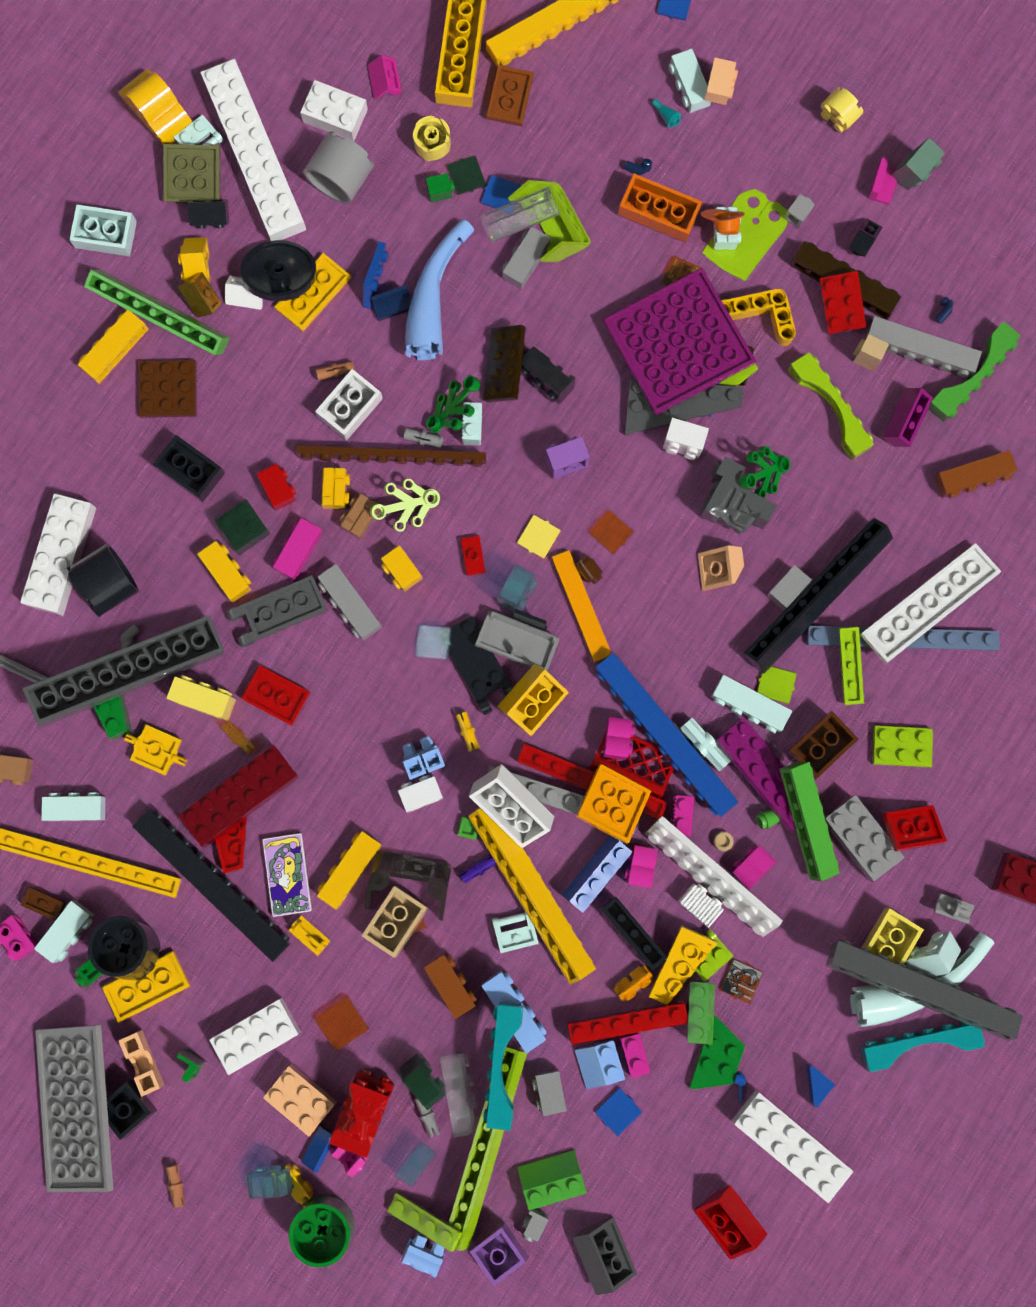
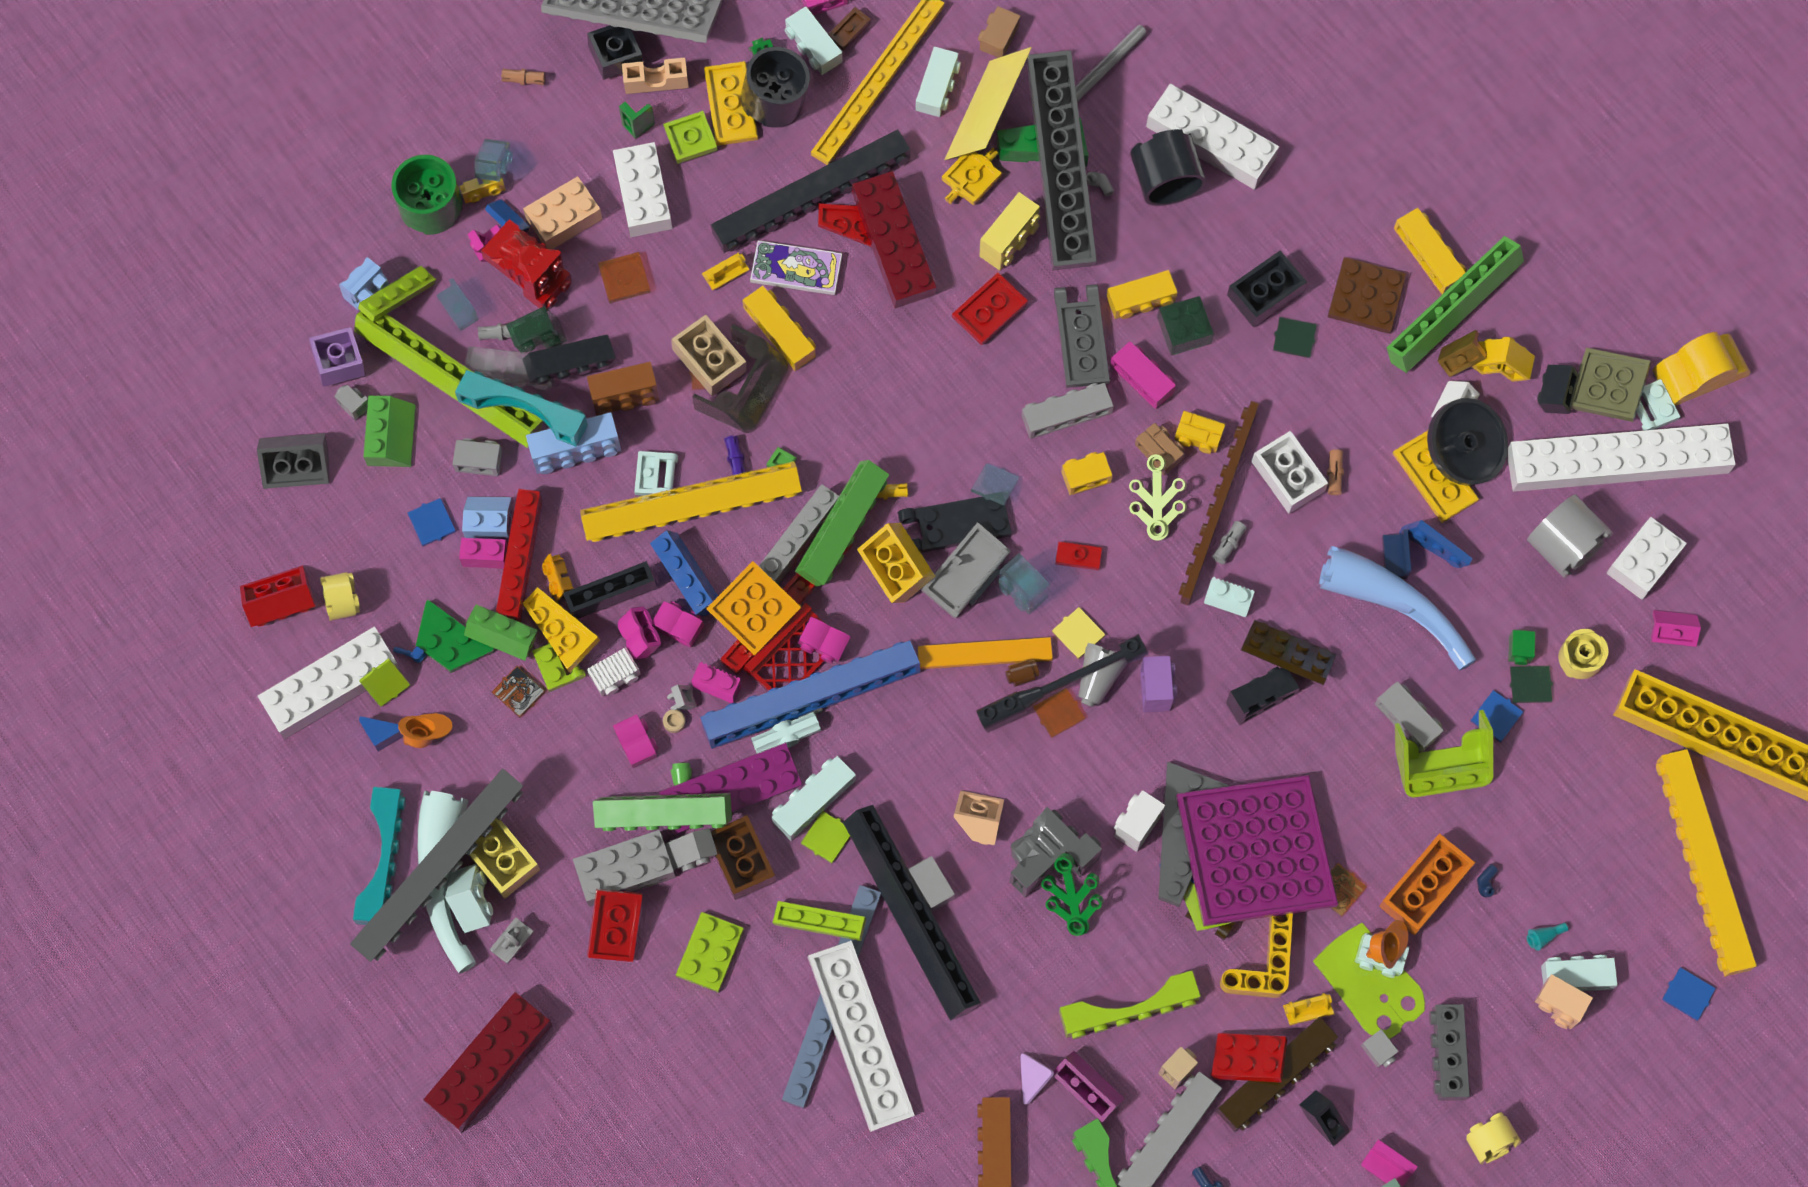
camera: 110 degrees right, 10 degrees down
(86, 753) = (987, 104): none -> light yellow piece
(103, 230) = (1566, 274): light aqua brick -> none
(190, 1011) = (690, 137): none -> lime plate
(223, 437) = (1294, 337): none -> clear green piece
(238, 737) = (957, 259): clear yellow pin -> none
(276, 486) = (1220, 373): red brick -> none
(420, 794) = (834, 421): white brick -> none
(426, 758) = (869, 434): light blue hips -> none
(437, 421) = (1243, 560): green plant -> none
(439, 1042) = (569, 359): none -> black brick
(510, 95) = (1615, 761): dark orange plate -> none
(511, 806) = (787, 501): white brick -> none
(513, 754) = (842, 522): none -> bright green brick
(520, 214) = (1460, 720): clear brick -> none
(570, 507) = (1097, 684): none -> light grey cone
(620, 563) = (1016, 704): none -> black bar
(662, 895) = (639, 633): none -> dark pink brick
(703, 839) = (683, 697): none -> light grey tile
(713, 877) = (631, 694): white plate -> none
(715, 1166) = (339, 597): none -> light yellow brick
(777, 1097) = (384, 682): none -> lime piece
(783, 158) = (1450, 1052): none -> dark grey brick
(786, 271) = (1308, 1009): none -> yellow hinge
(804, 1047) = (422, 729): none -> orange piece
(832, 786) = (691, 850): none -> light grey brick
(913, 462) = (1034, 1077): none -> lavender piece

